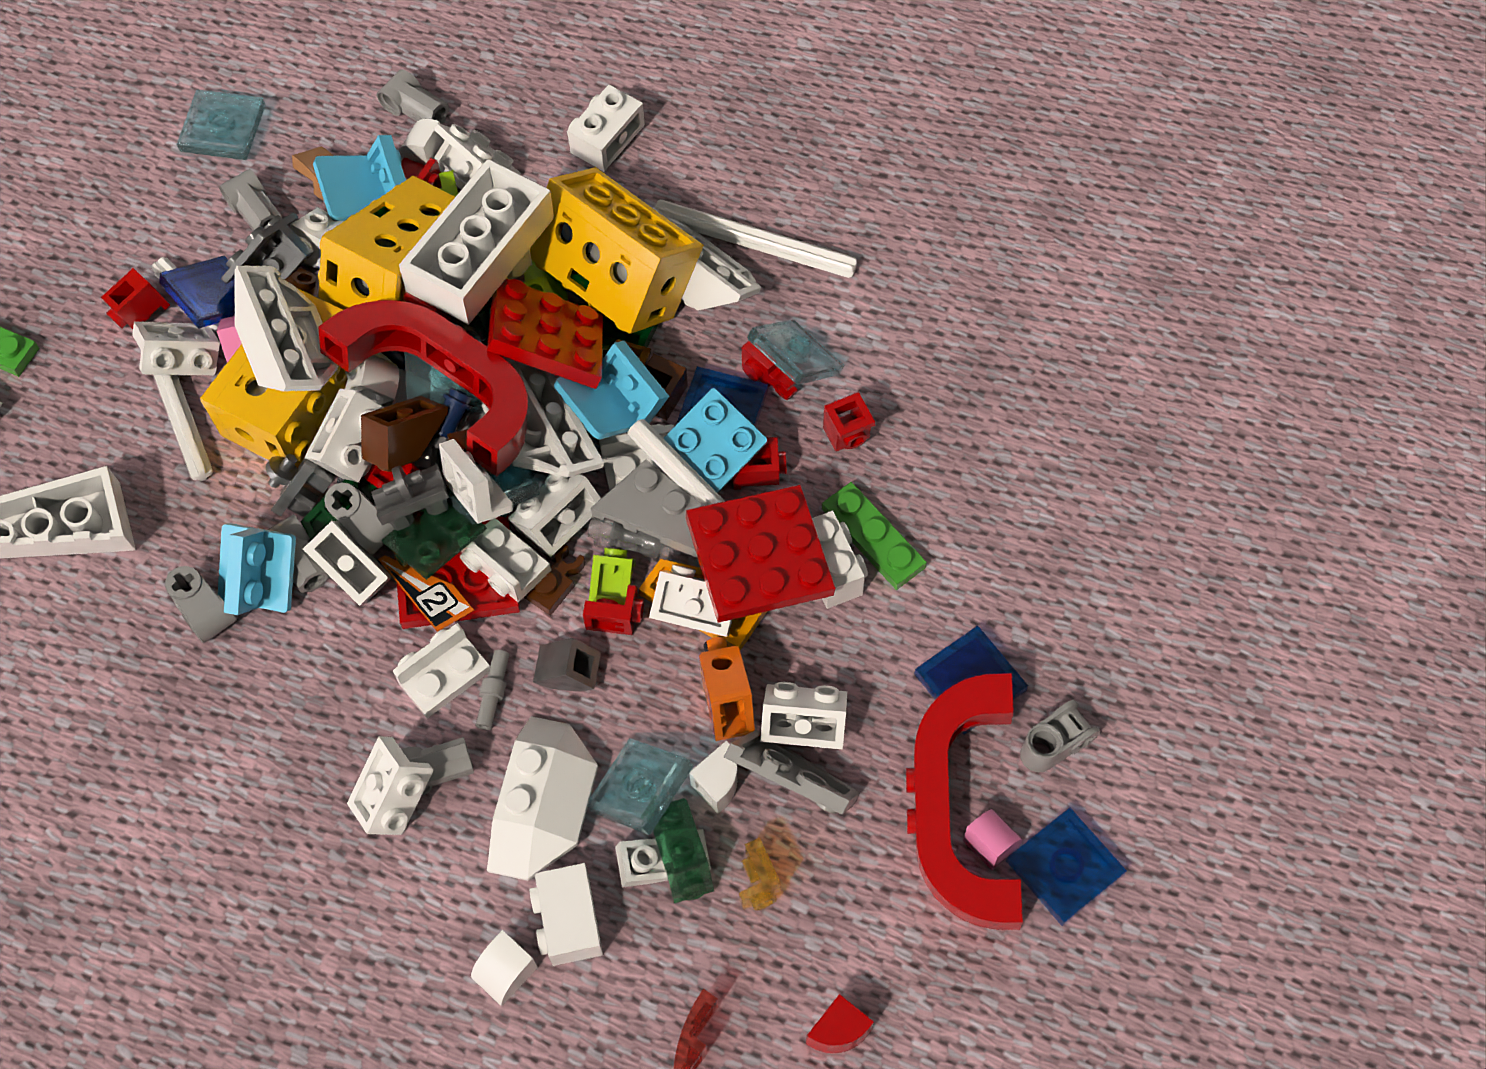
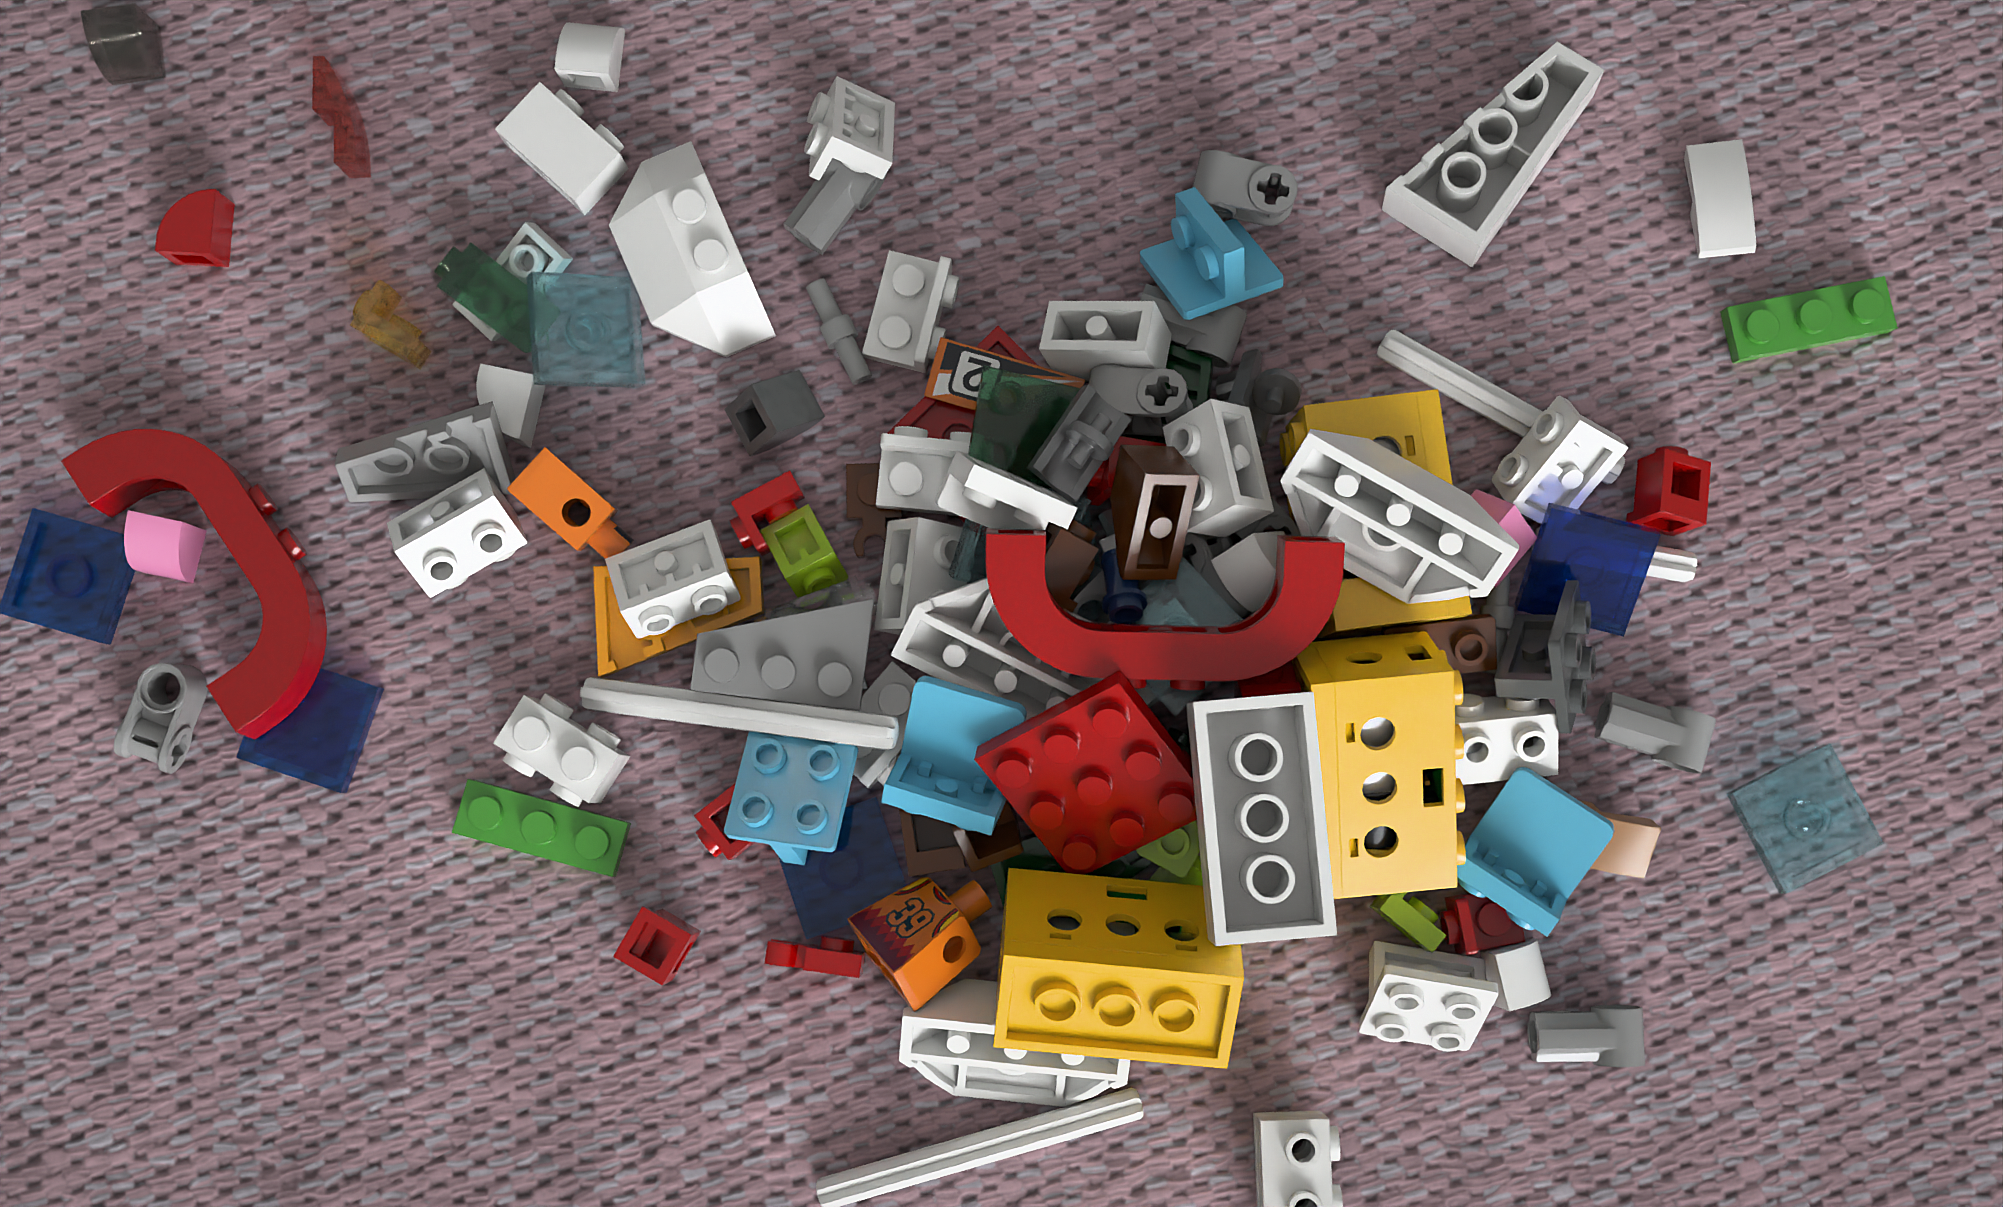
camera: 140 degrees right, 20 degrees up
(703, 337) = (921, 936): none -> orange torso
(759, 553) = (623, 673): red plate -> none
(795, 351) = (795, 1002): clear light blue plate -> none

